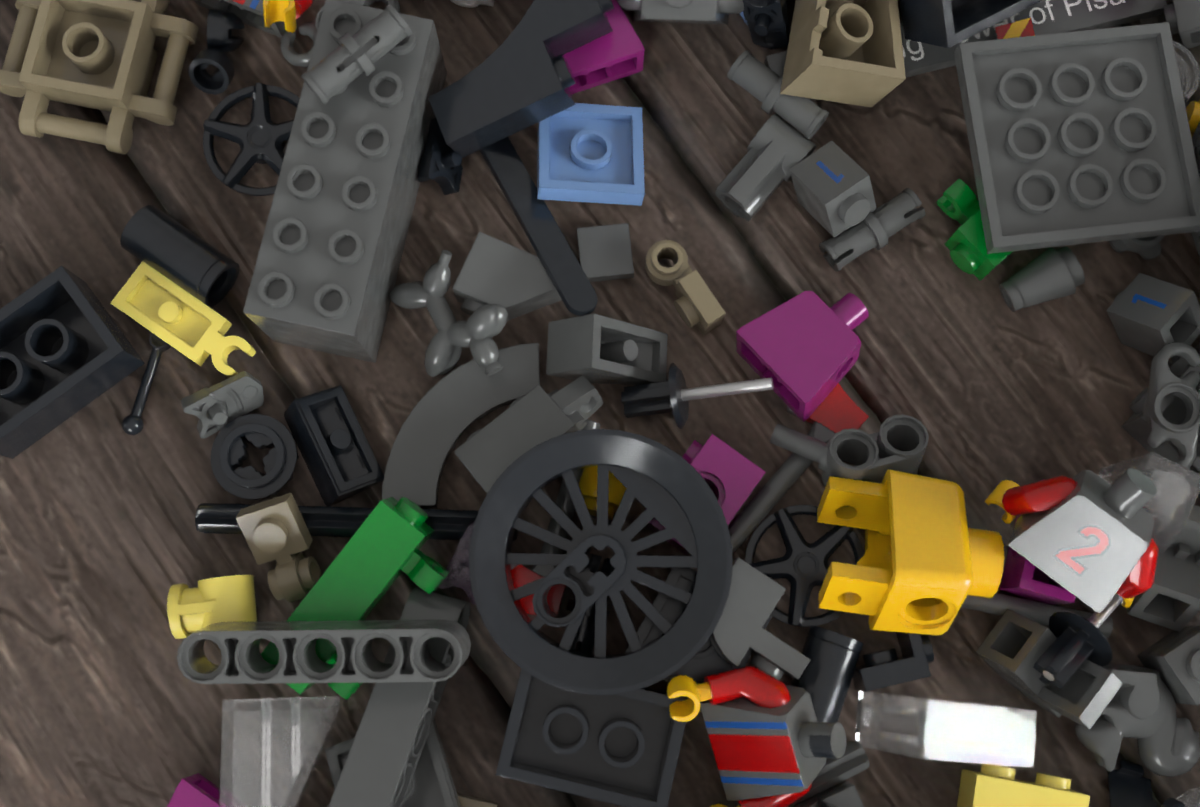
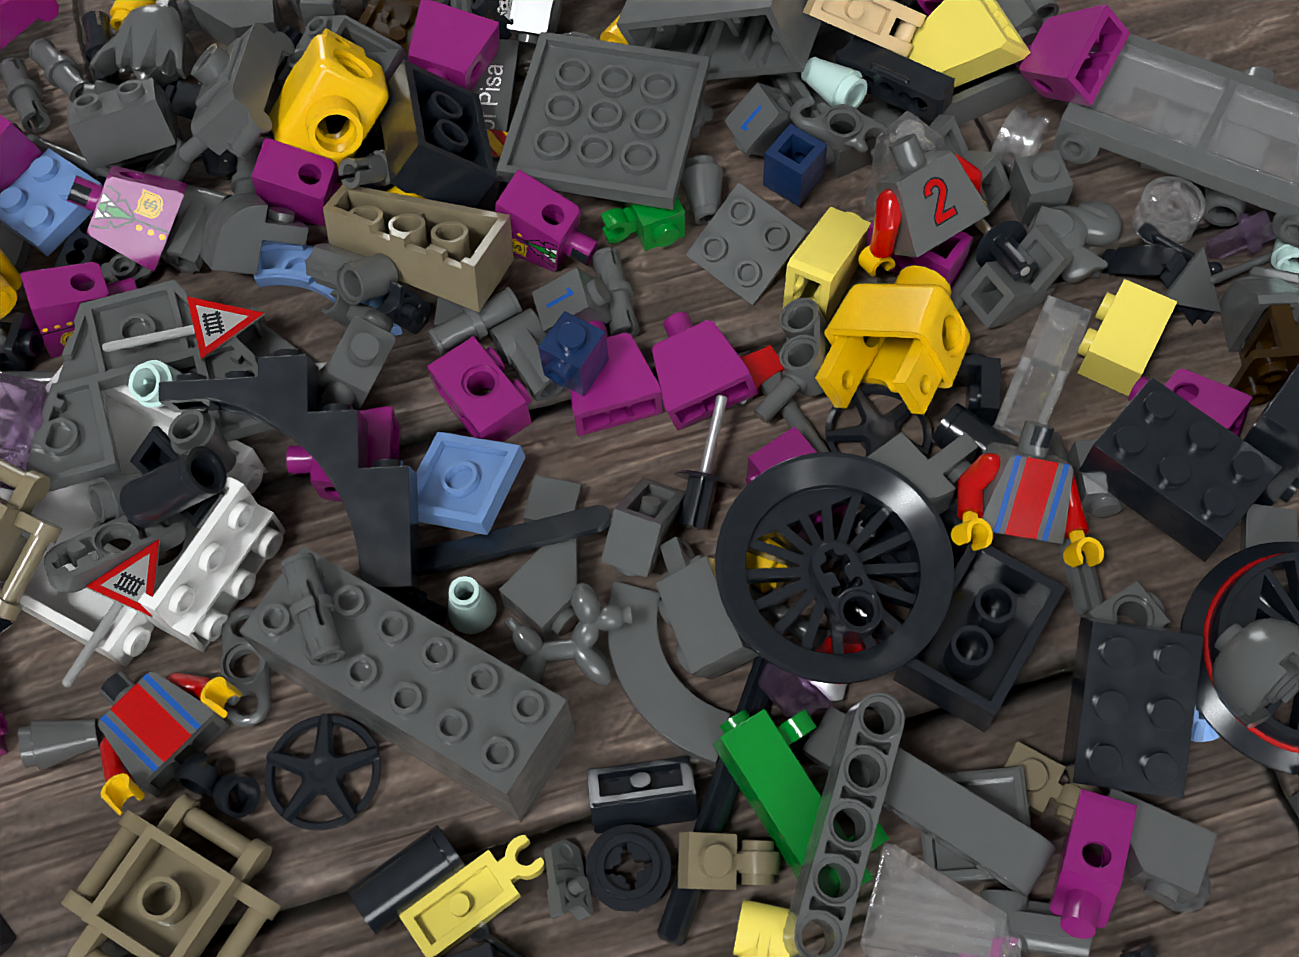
camera: 65 degrees left, 15 degrees down
(466, 221) = (470, 606): none -> light aqua cone
(695, 300) = (621, 441): dark tan plate -> none
(707, 105) = (471, 369): none -> magenta brick
(757, 208) = (574, 353): none -> dark blue brick
(761, 256) = (622, 390): none -> magenta torso
(925, 105) = (543, 224): none -> magenta torso
(987, 351) = (746, 243): none -> dark grey hinge
(991, 445) = (826, 260): none -> light yellow slope
(1109, 371) = (794, 164): none -> dark blue brick

